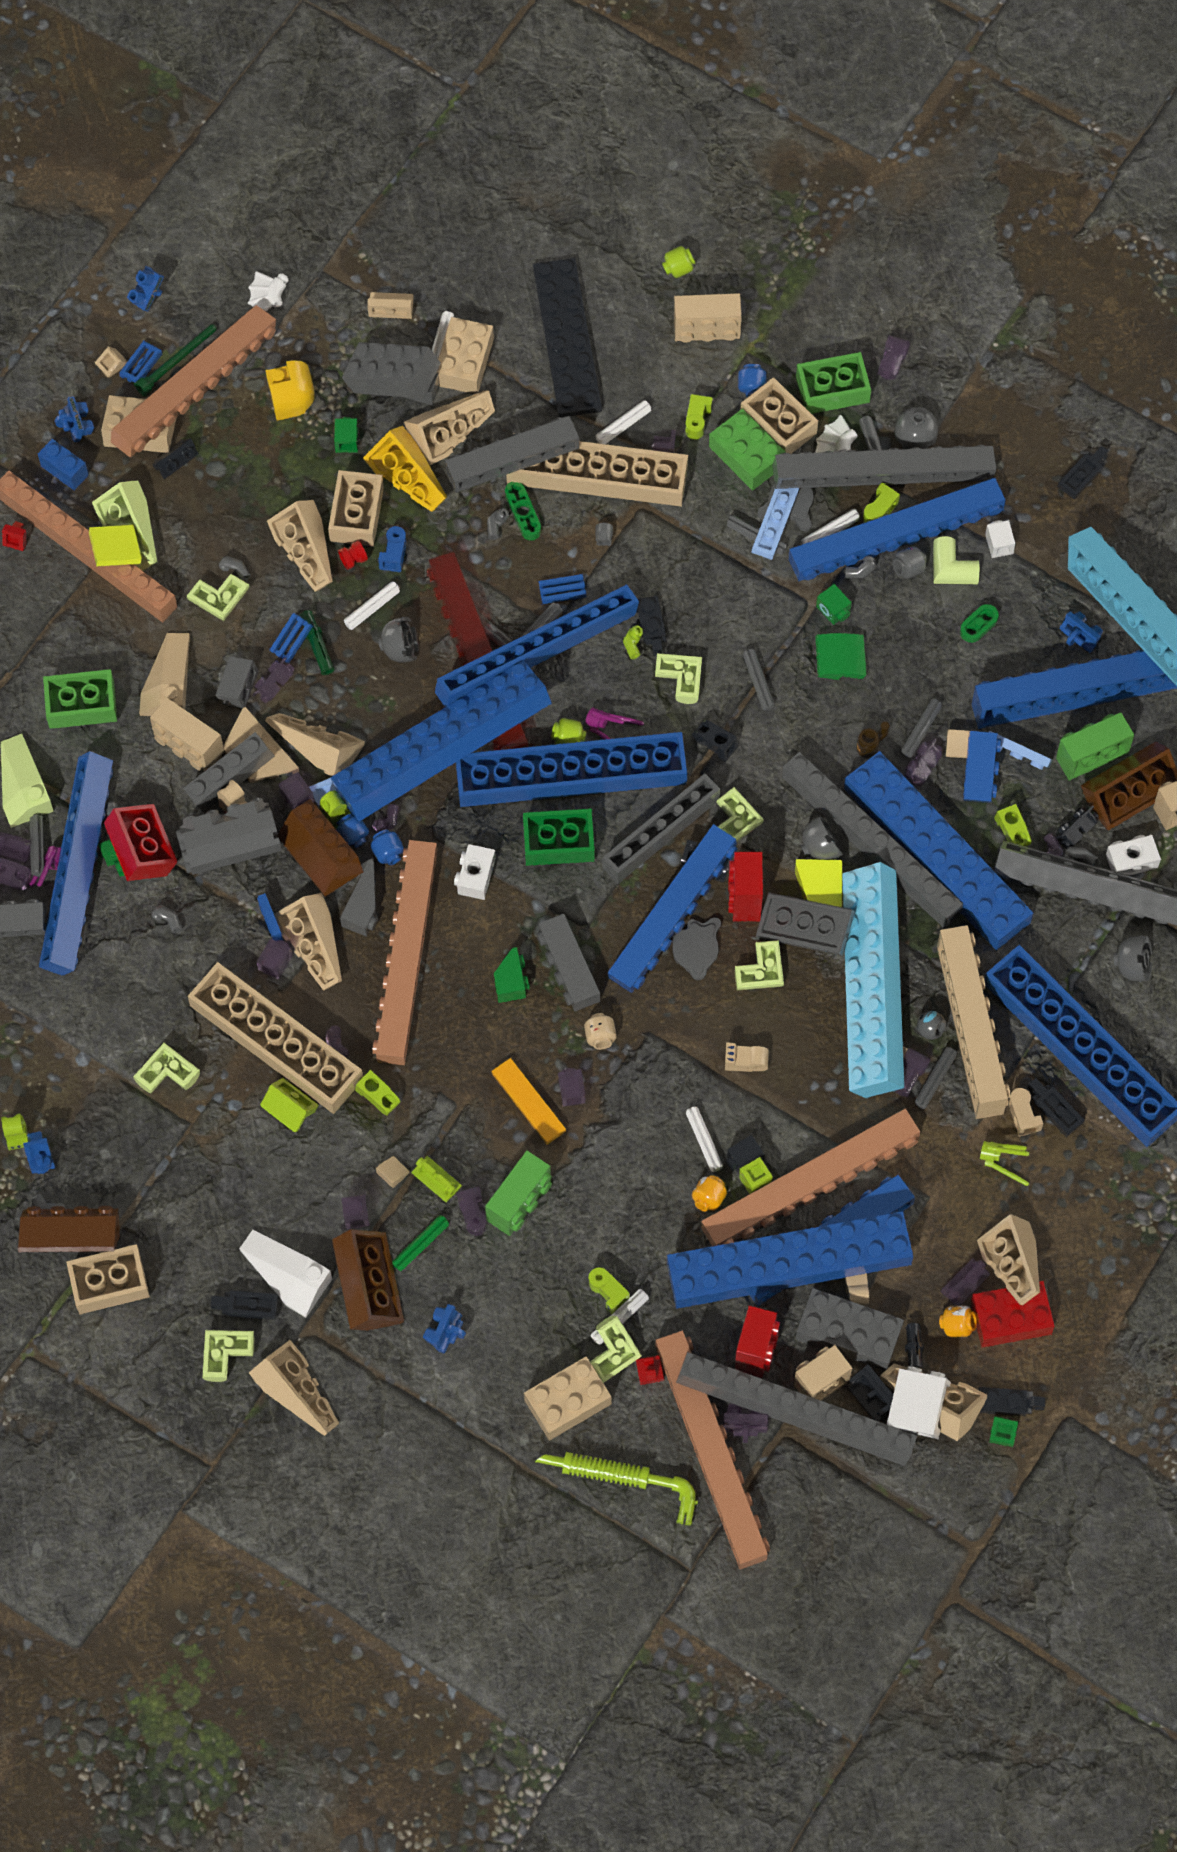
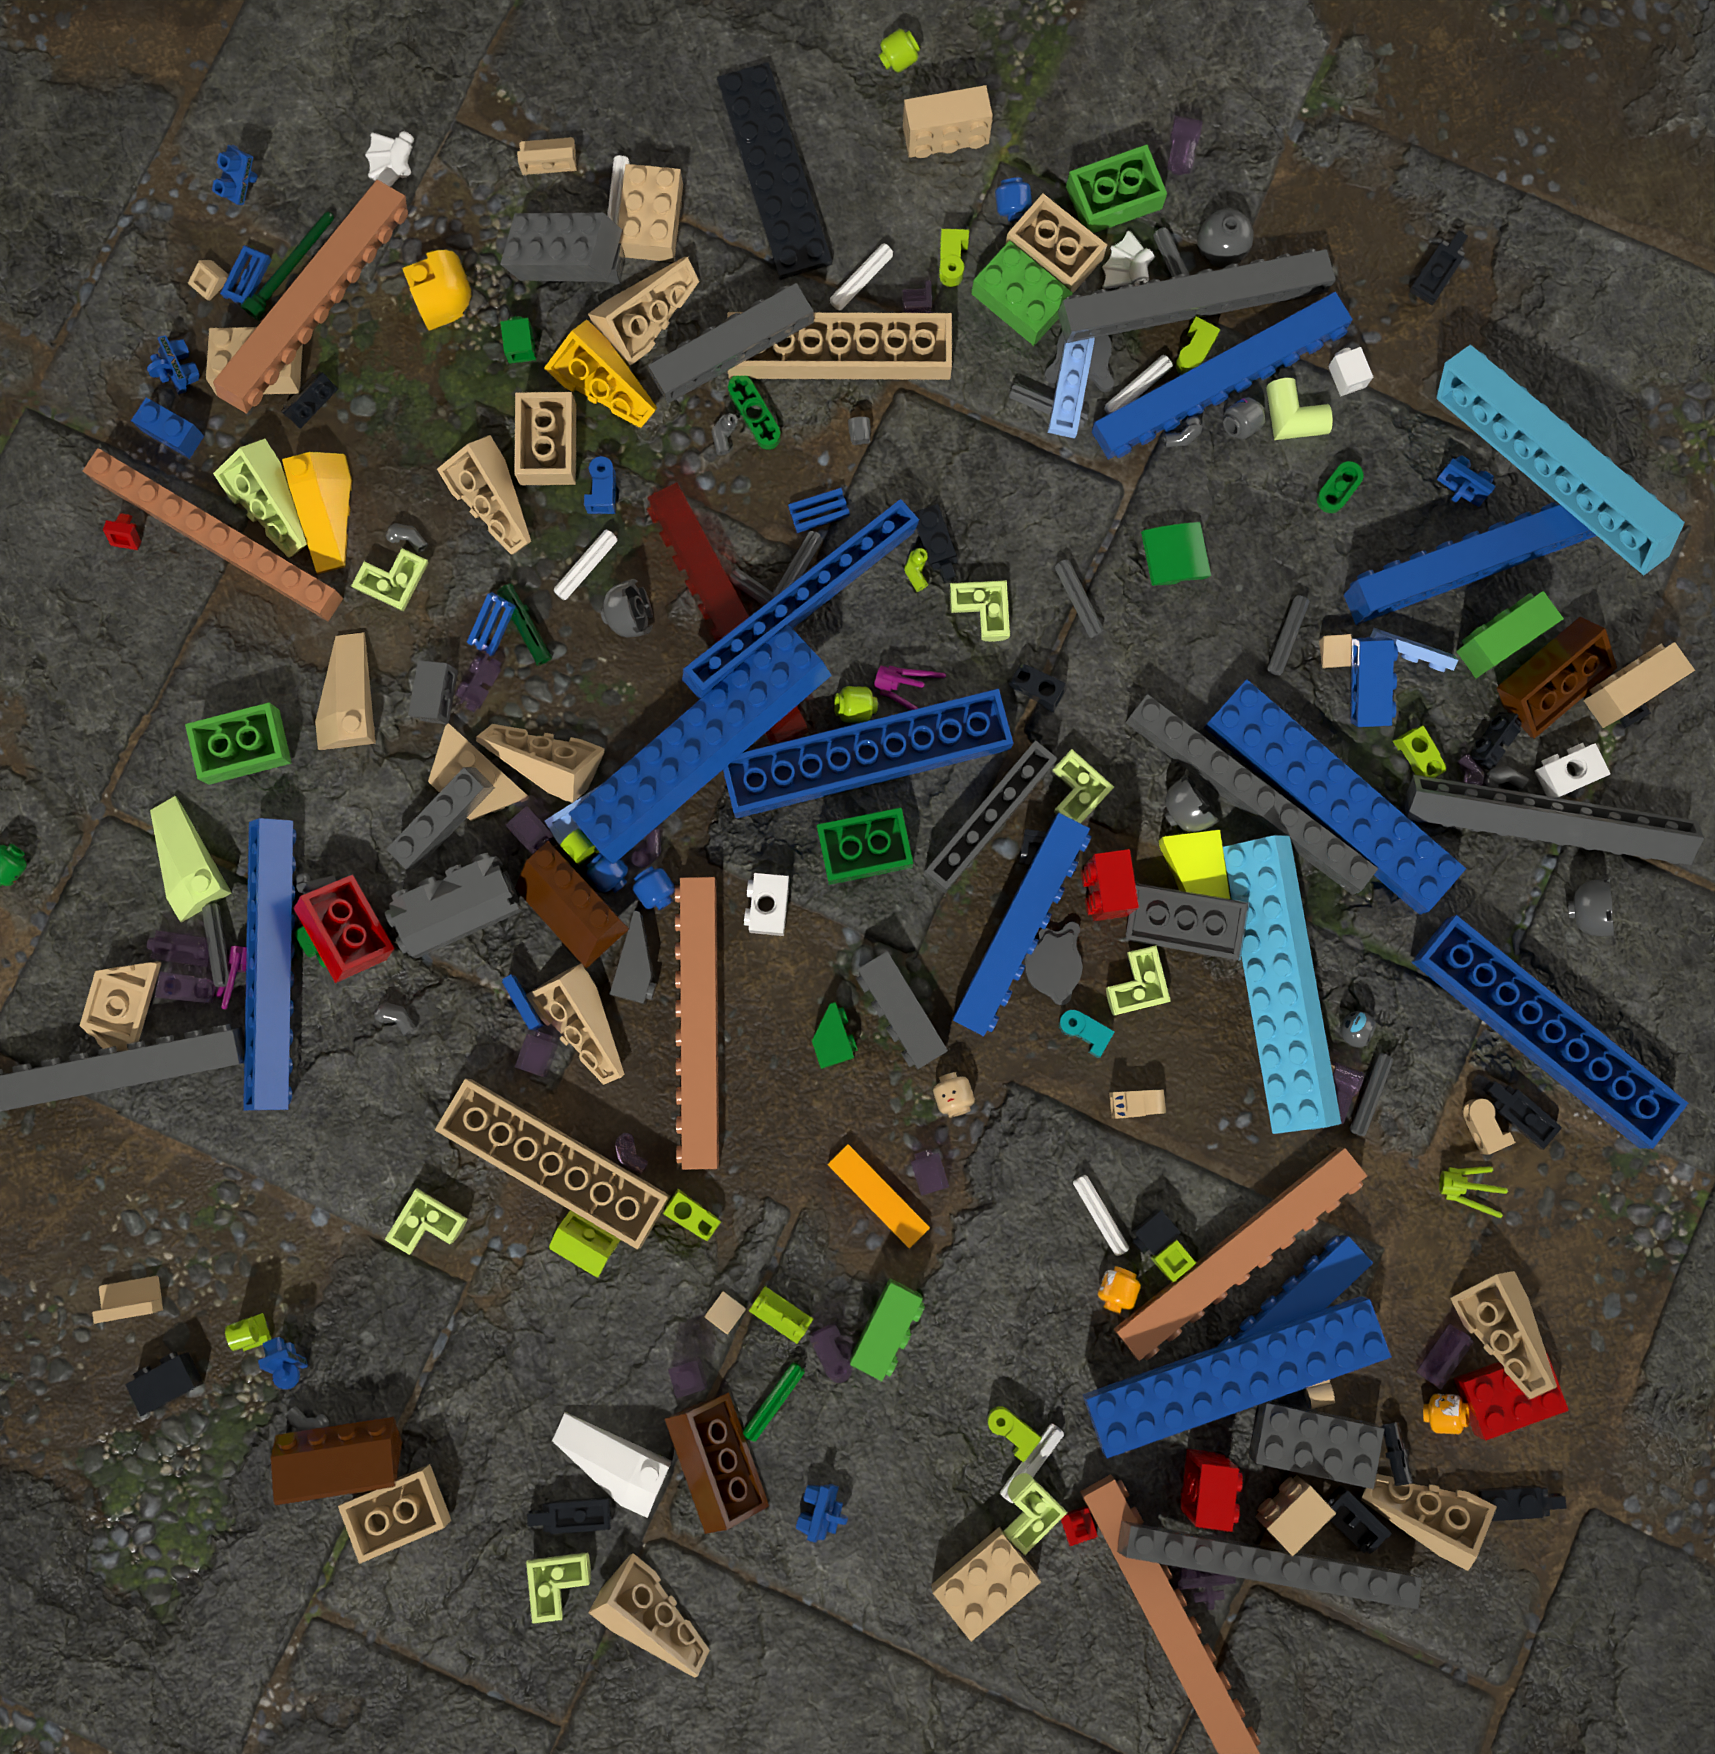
camera: 10 degrees left, 15 degrees up
(115, 545) = (247, 534): neon yellow tile -> none
(174, 529) = (321, 497): none -> yellow wedge
(186, 735) = (379, 777): tan brick -> none
(230, 795) = (451, 851): tan leg -> none
(354, 554) = (552, 500): red wheel -> none
(625, 1475) = (1071, 1669): lime piece -> none
(714, 997) = (1079, 1025): none -> teal leg
(834, 604) = (1159, 487): green brick -> none
(869, 740) = (1229, 663): dark brown piece -> none
(918, 1402) = (1418, 1534): white panel -> none
(928, 755) = (1301, 669): clear purple hinge -> none
(972, 1022) = (1412, 1023): tan brick -> none
(1003, 1431) = (1519, 1545): green plate -> none

